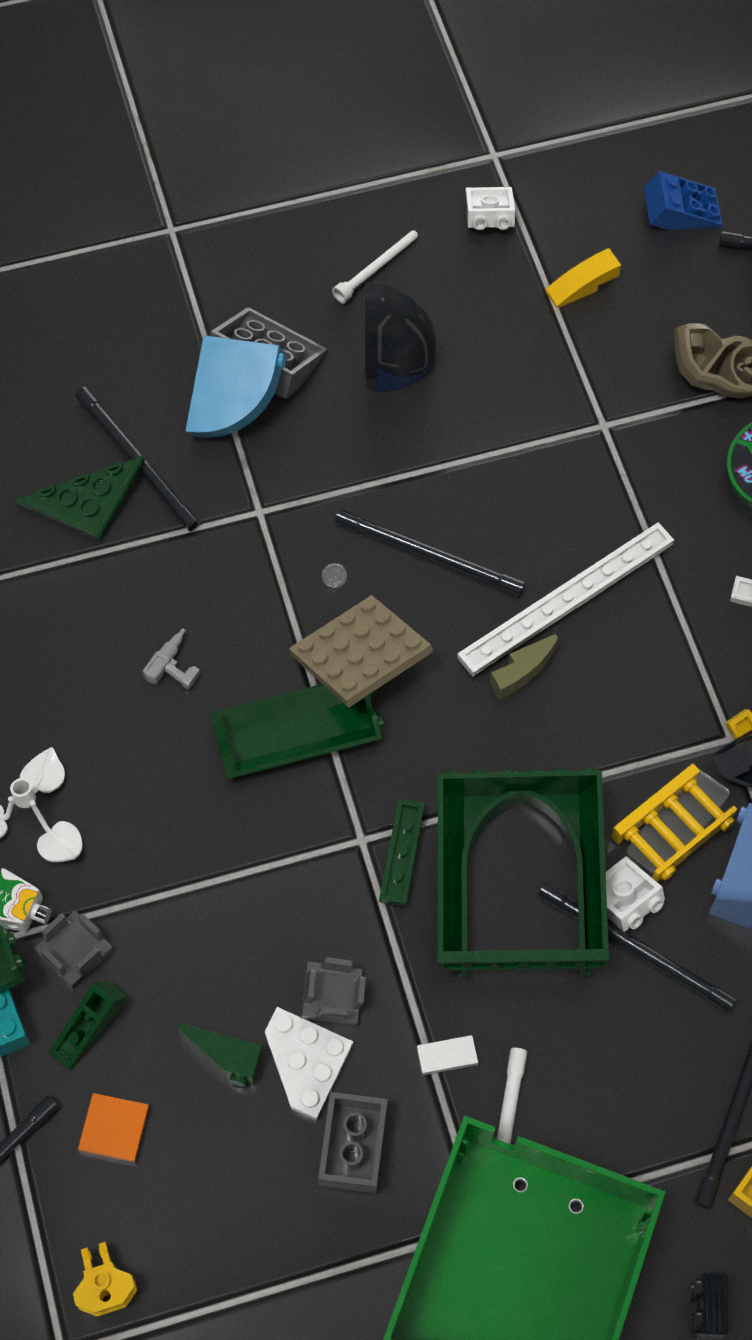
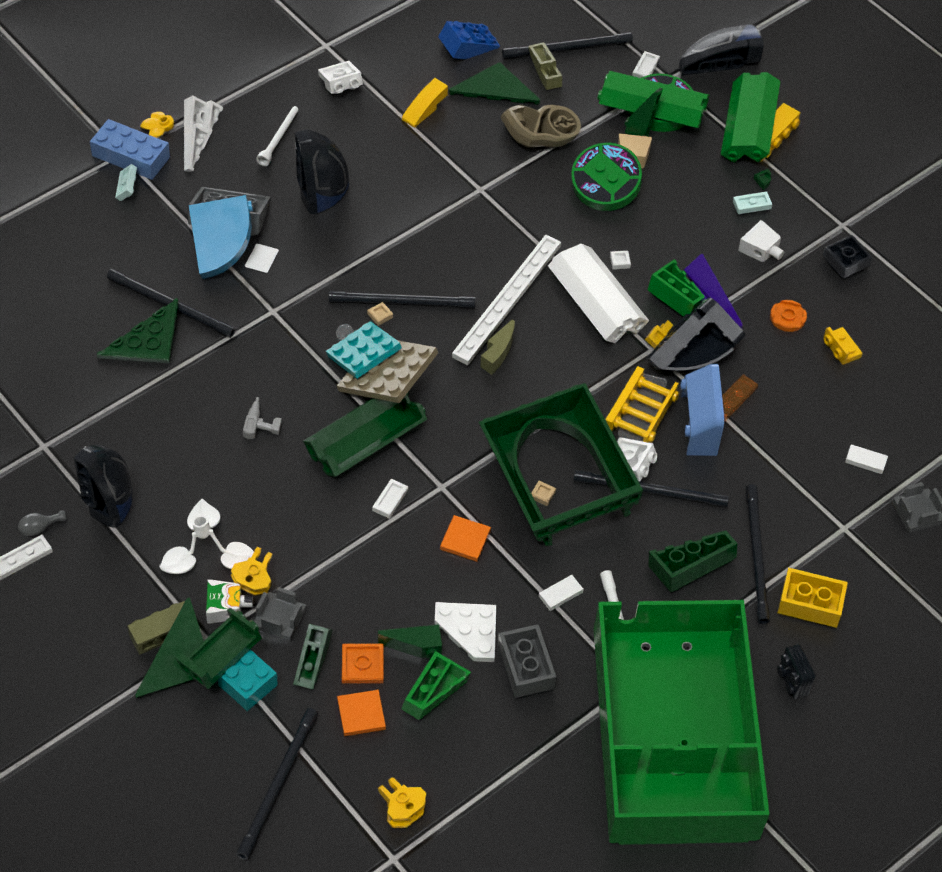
camera: 25 degrees left, 10 degrees down
(66, 877) = (254, 572): none -> yellow hinge
(147, 1057) = (362, 663): none -> orange tile
(154, 274) = (126, 182): none -> light aqua plate
(180, 227) = (128, 146): none -> medium blue brick
(217, 1129) = (434, 685): none -> green wedge
(231, 203) = (158, 124): none -> yellow plate
(279, 431) = (261, 258): none -> white sticker
(282, 217) = (198, 125): none -> white wedge
(287, 833) = (390, 498): none -> white tile
(332, 991) = (469, 579): dark grey panel -> none
(343, 610) = (363, 349): none -> teal plate
(357, 927) = (465, 538): none -> orange tile
(392, 562) = (380, 313): none -> tan tile
(401, 853) = (473, 483): dark green plate -> none
(488, 899) = (543, 493): none -> tan tile
(642, 1078) = (692, 560): none -> dark green wedge
(690, 279) = (495, 84): none -> dark green tile
(690, 633) = (597, 292): none -> white panel

